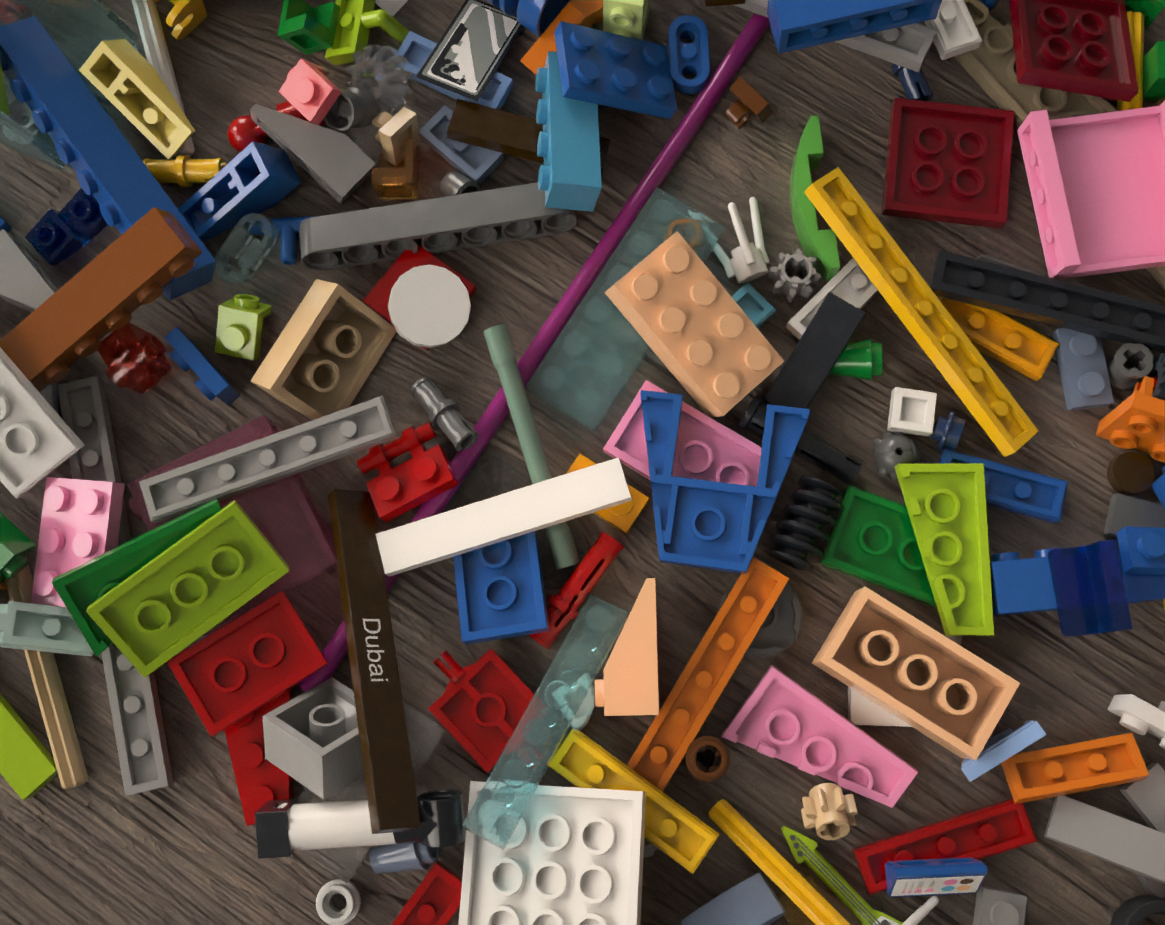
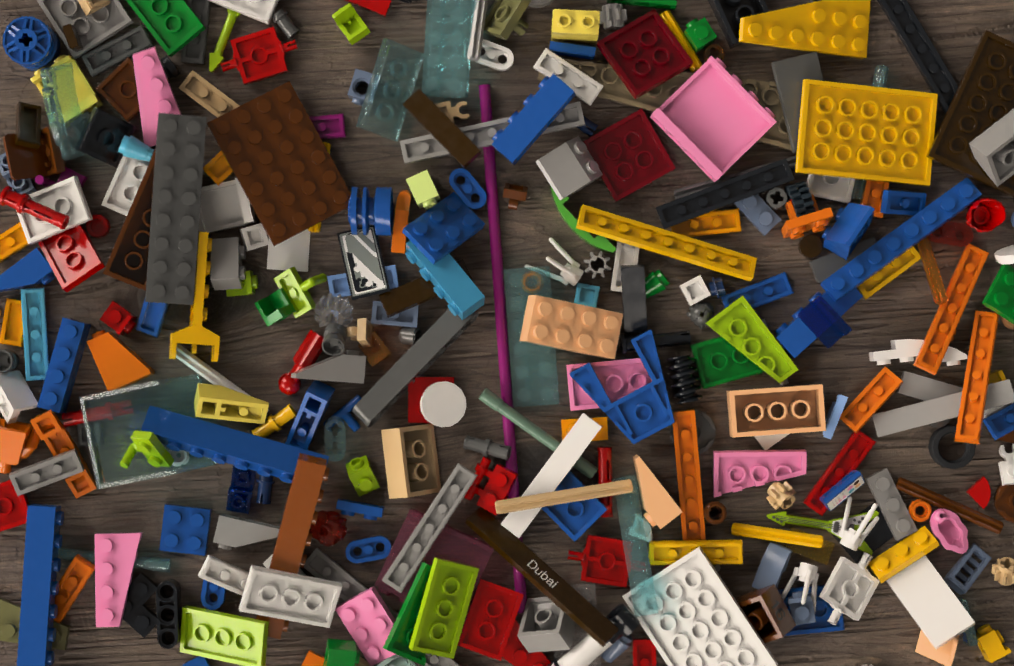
camera: 35 degrees left, 10 degrees up
(98, 242) = (264, 489): none -> dark blue pin
(169, 434) = (369, 549): none -> blue plate
(310, 90) = (314, 347): coral bracket -> none
(497, 559) = (563, 496): none -> tan axle
(854, 112) = (569, 168): none -> light grey slope

